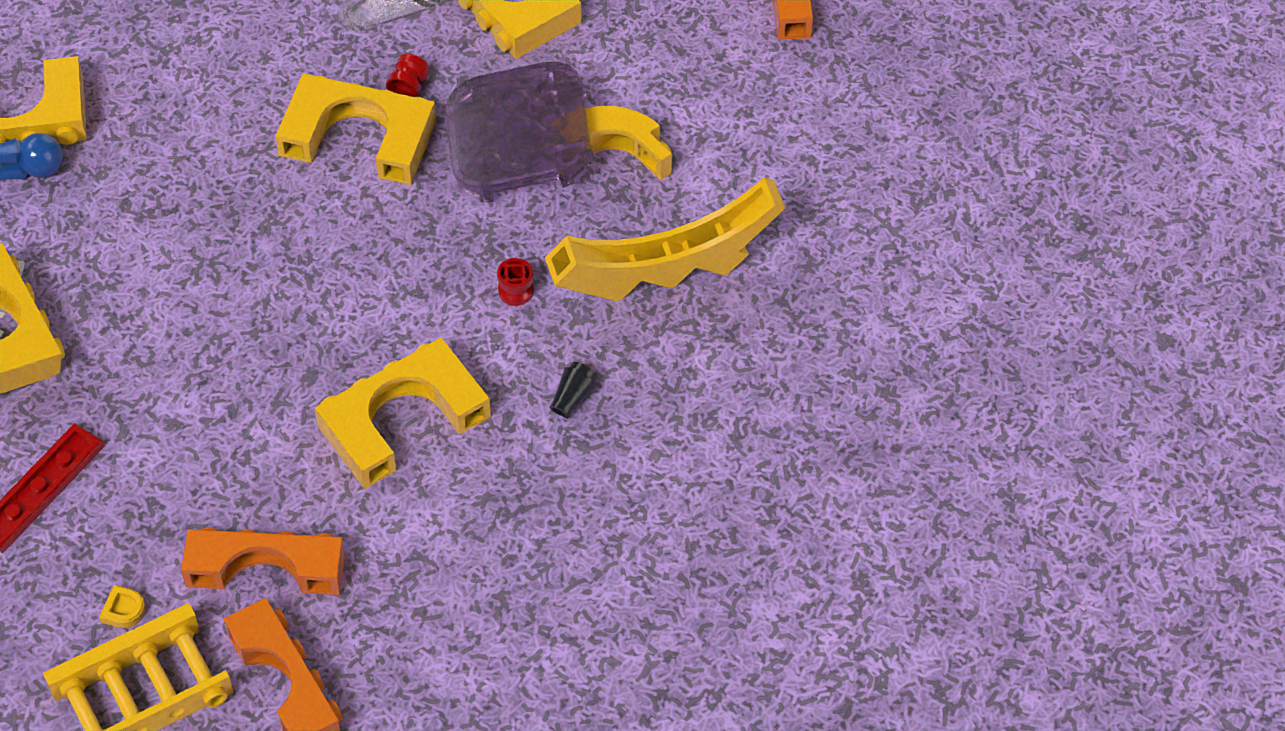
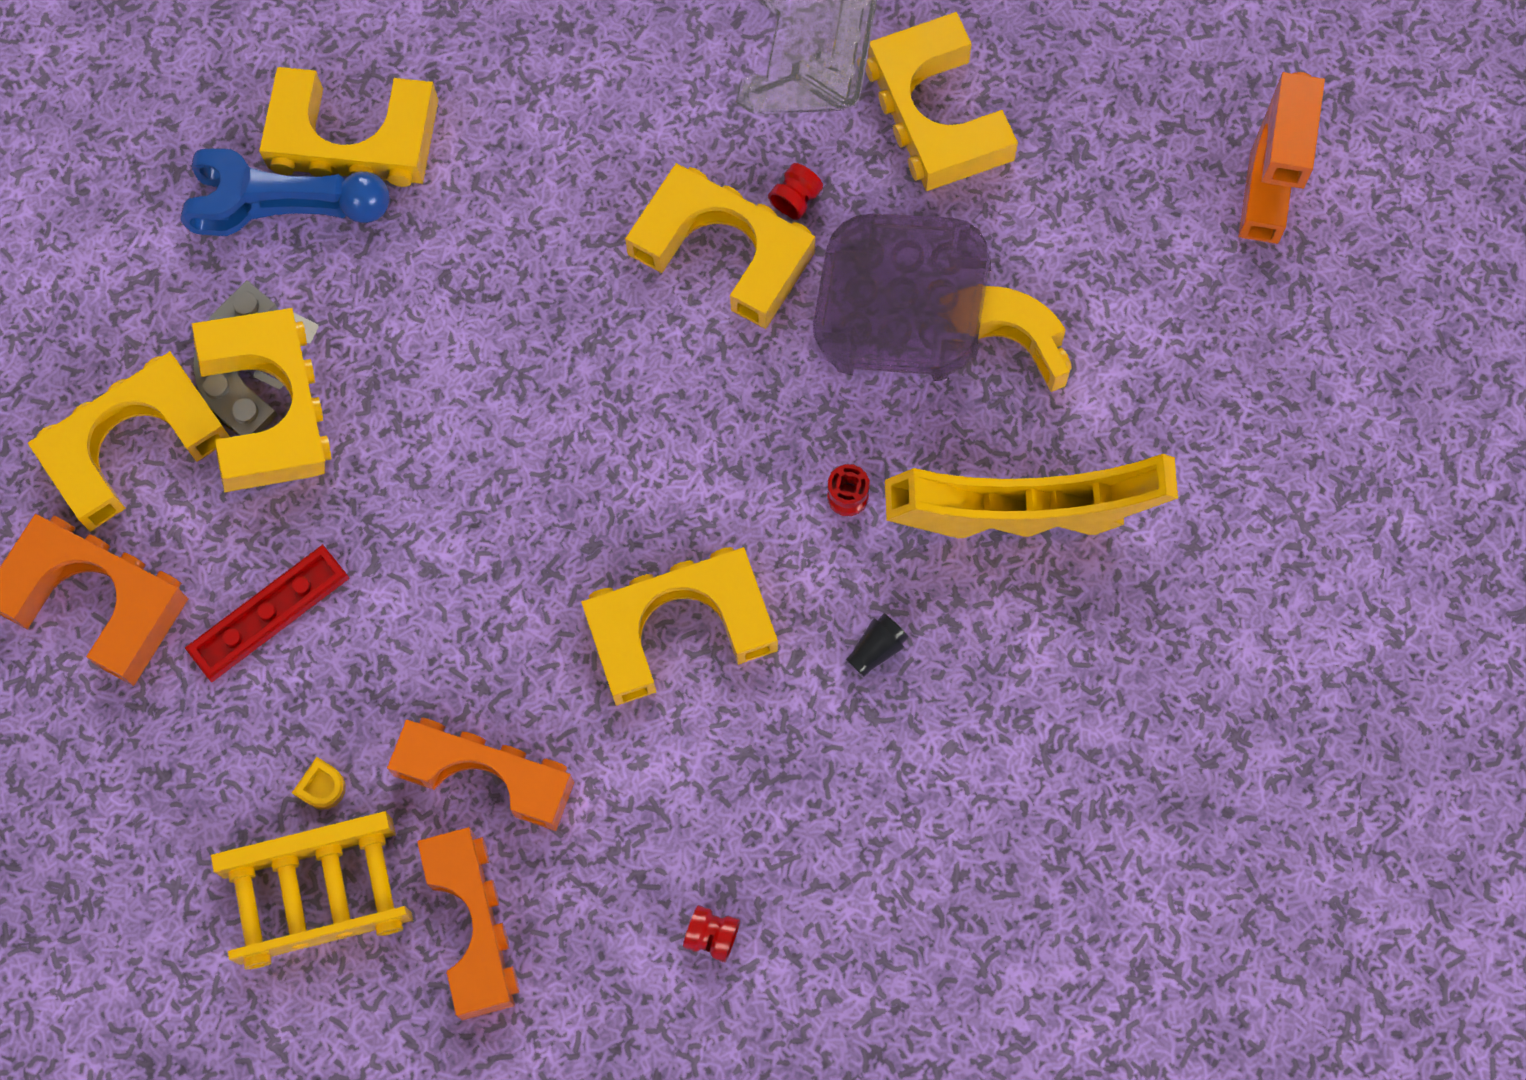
camera: 20 degrees right, 15 degrees up
(487, 634) = (711, 933): none -> red wheel

